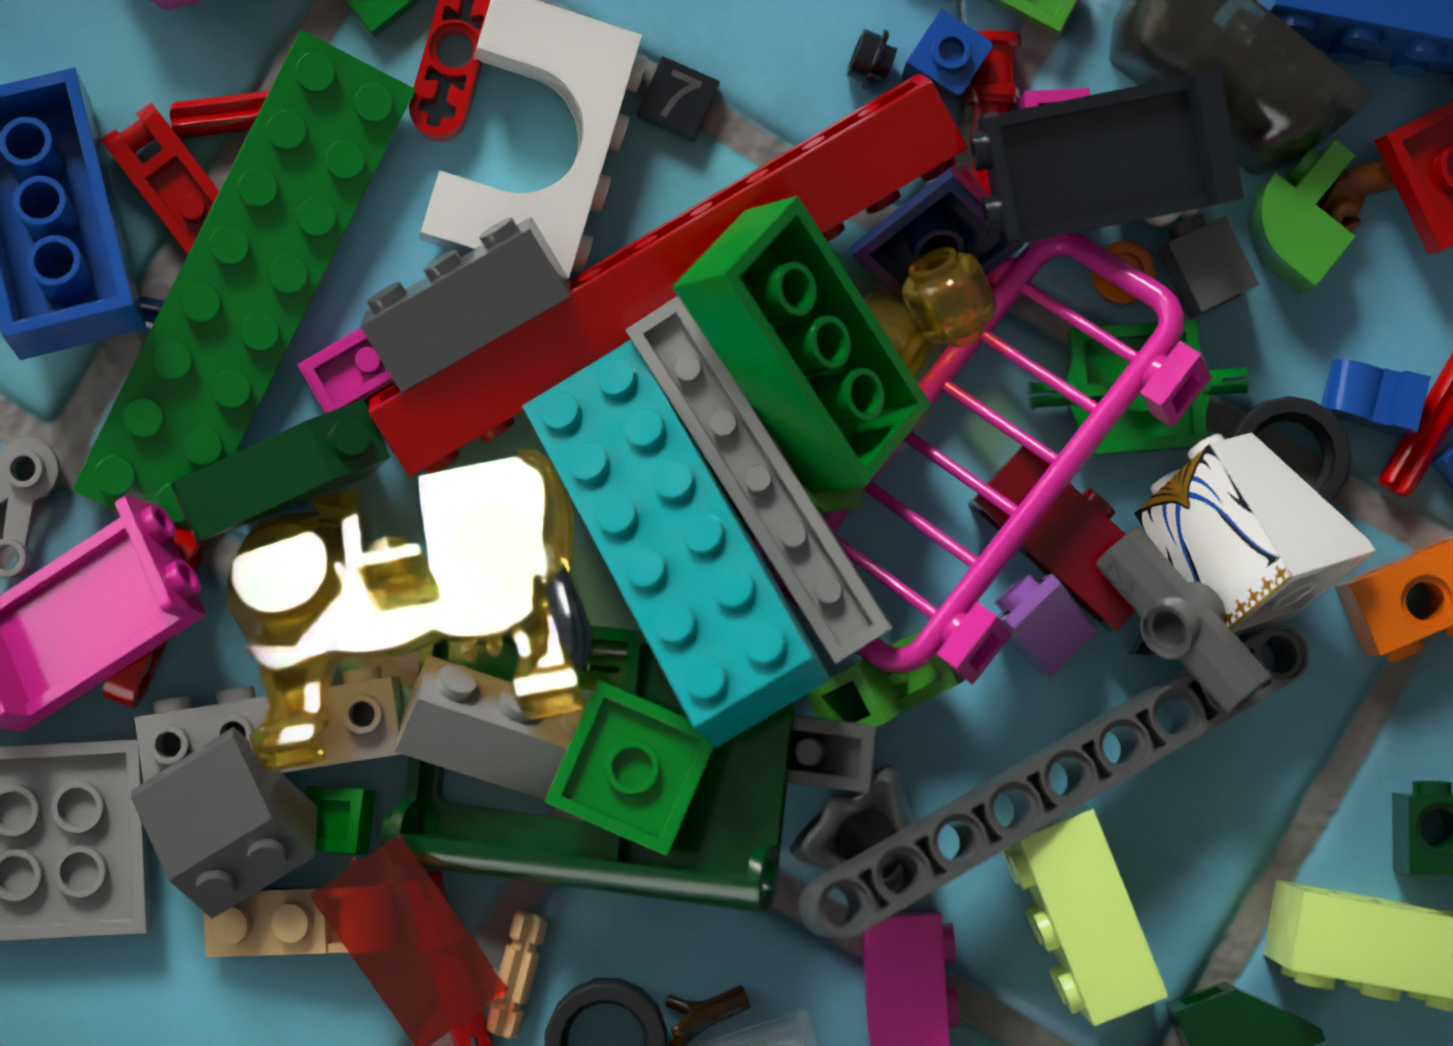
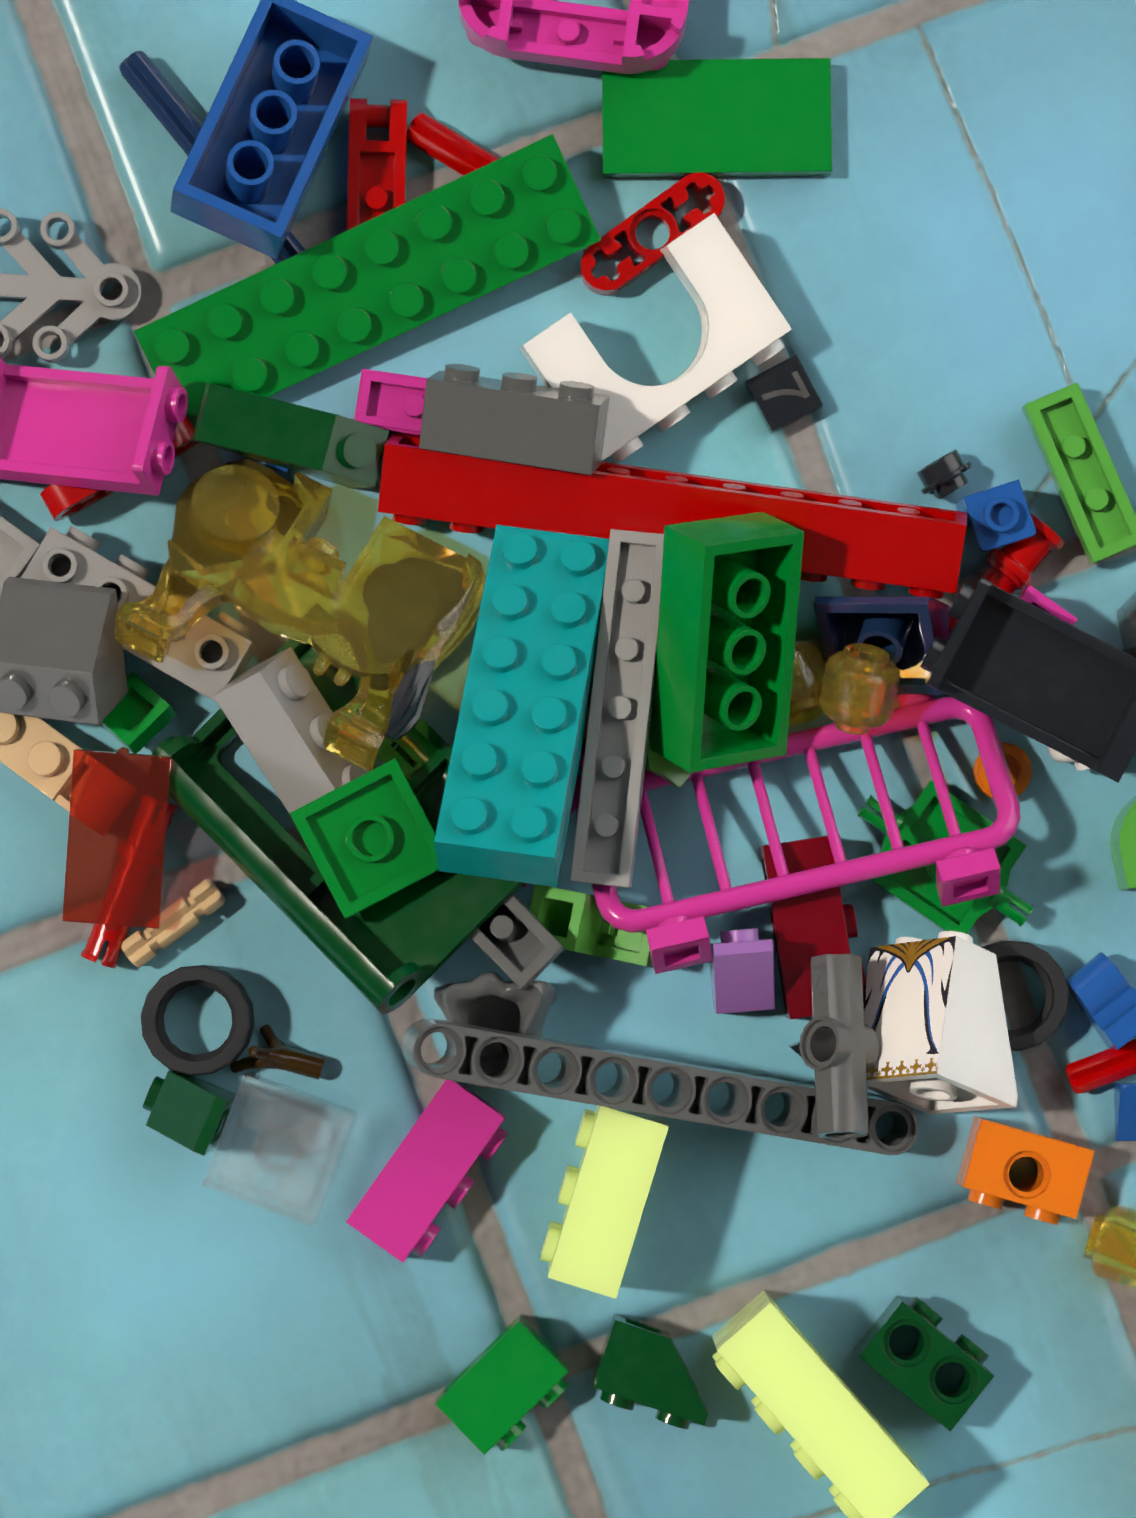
camera: 40 degrees right, 0 degrees up
(1206, 265) = (1064, 812): dark grey brick -> none

